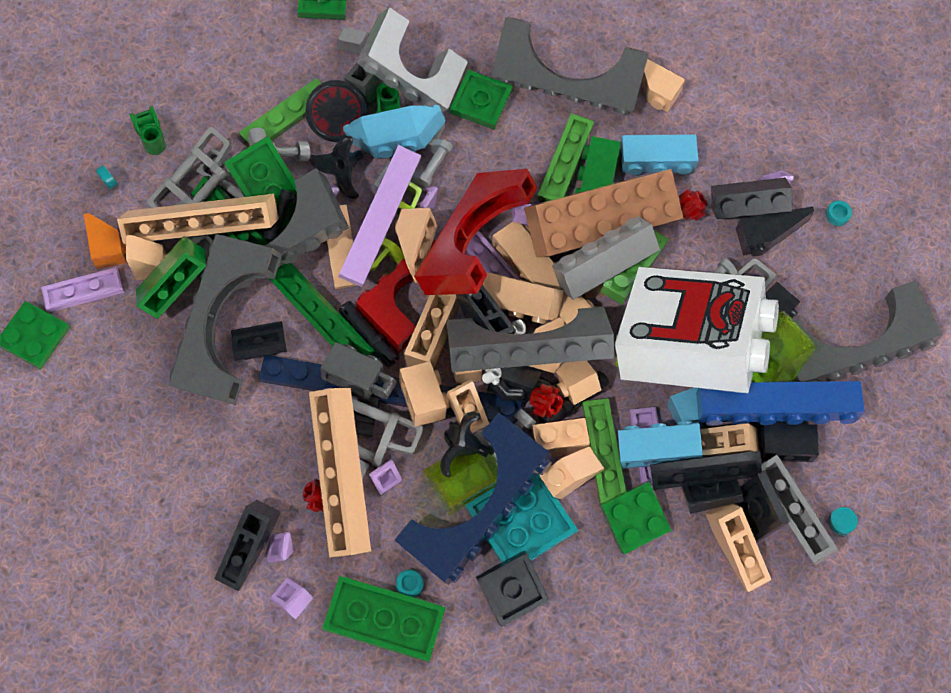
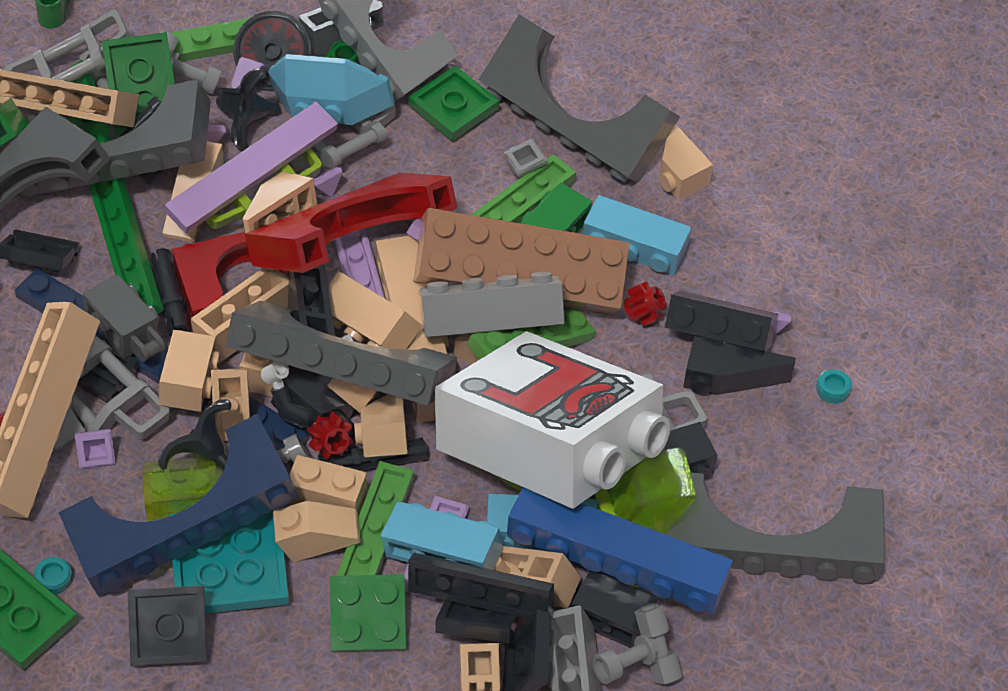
camera: 25 degrees right, 15 degrees down
(328, 136) = (243, 67): none -> lavender slope
(555, 125) = (524, 158): none -> light grey slope
(829, 463) = (648, 647): none -> light grey bar

